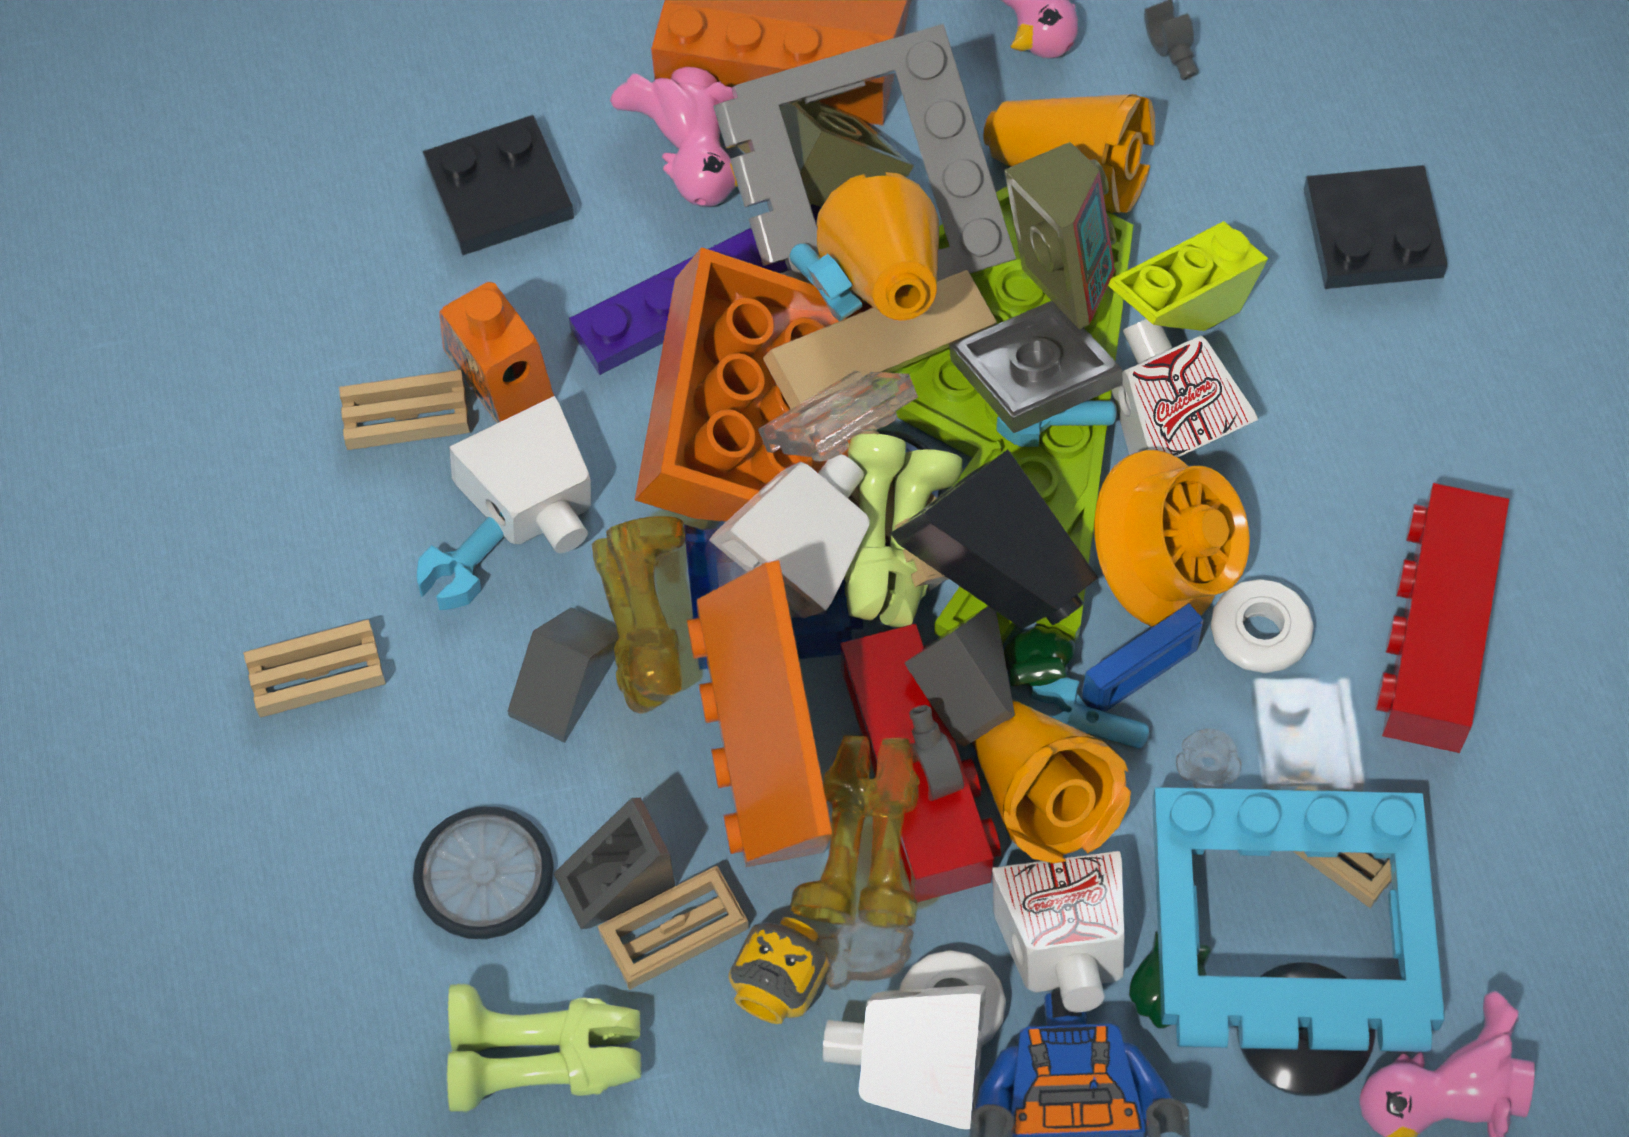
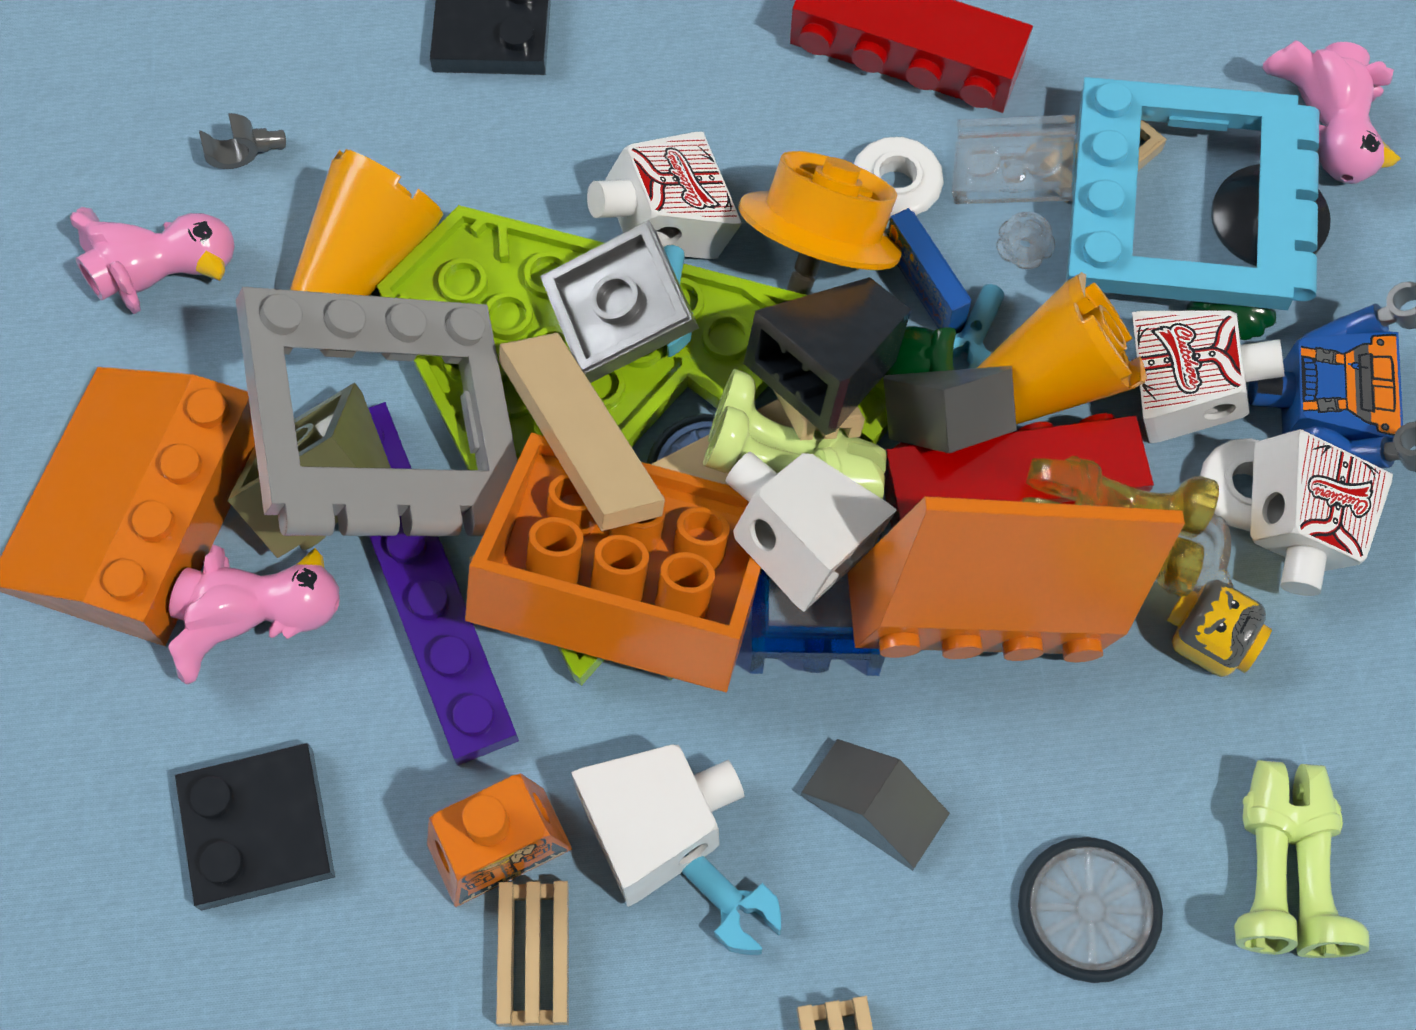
camera: 85 degrees left, 5 degrees up
(616, 867) = (1109, 766): dark grey slope -> none
(646, 646) = (876, 712): clear yellow piece -> none
(684, 949) = (1138, 736): tan tile -> none
(828, 279) = (525, 449): medium azure bar -> none
(838, 413) = (695, 458): clear plate -> none
(884, 242) = (504, 388): light orange cone -> none
(934, 755) = (1048, 438): dark grey piece -> none
(1064, 228) = (492, 237): olive slope -> none
(1195, 280) = (550, 151): neon yellow slope -> none

